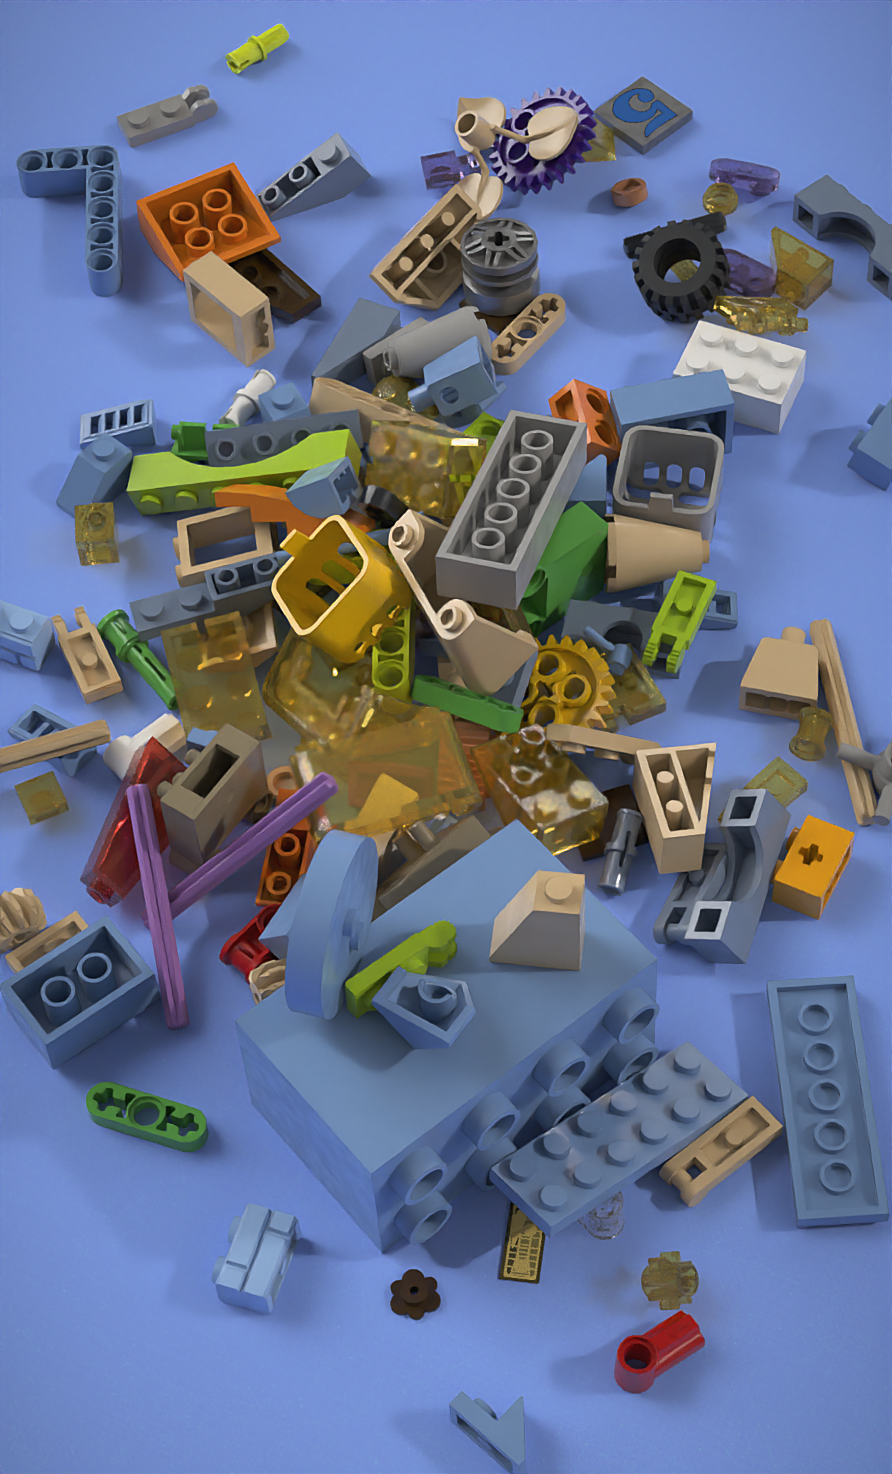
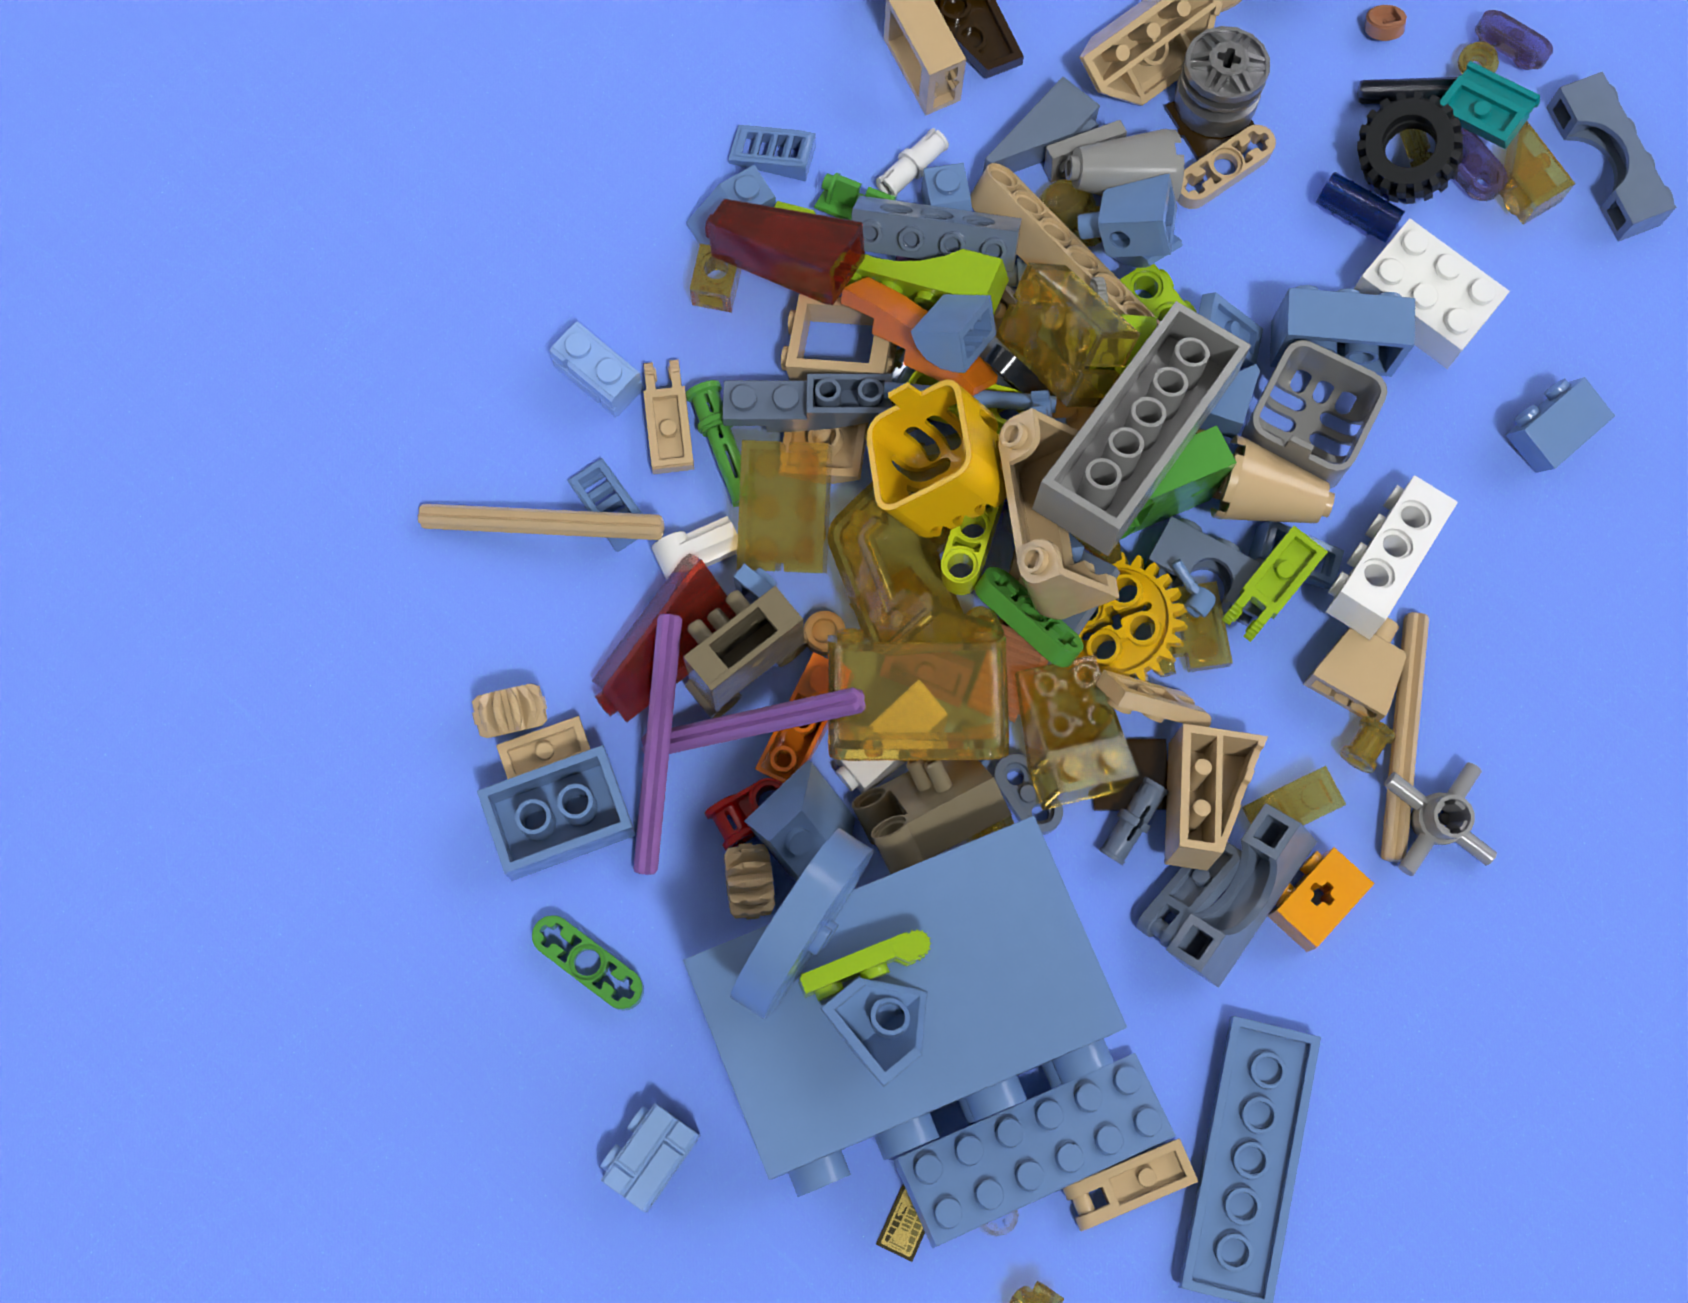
camera: 10 degrees right, 20 degrees up
(41, 797) = (579, 572): clear yellow plate -> none
(153, 476) = (788, 247): none -> clear red slope
(414, 1305) = (776, 1239): dark brown plant -> none
(543, 923) = (1018, 970): tan slope -> none
(589, 405) = (1253, 311): orange brick -> none
(654, 330) = (1360, 207): none -> clear blue axle
(741, 221) = (1490, 104): none -> teal plate
(761, 315) = (1476, 226): clear yellow plate -> none
(775, 577) = (1391, 557): none -> white brick

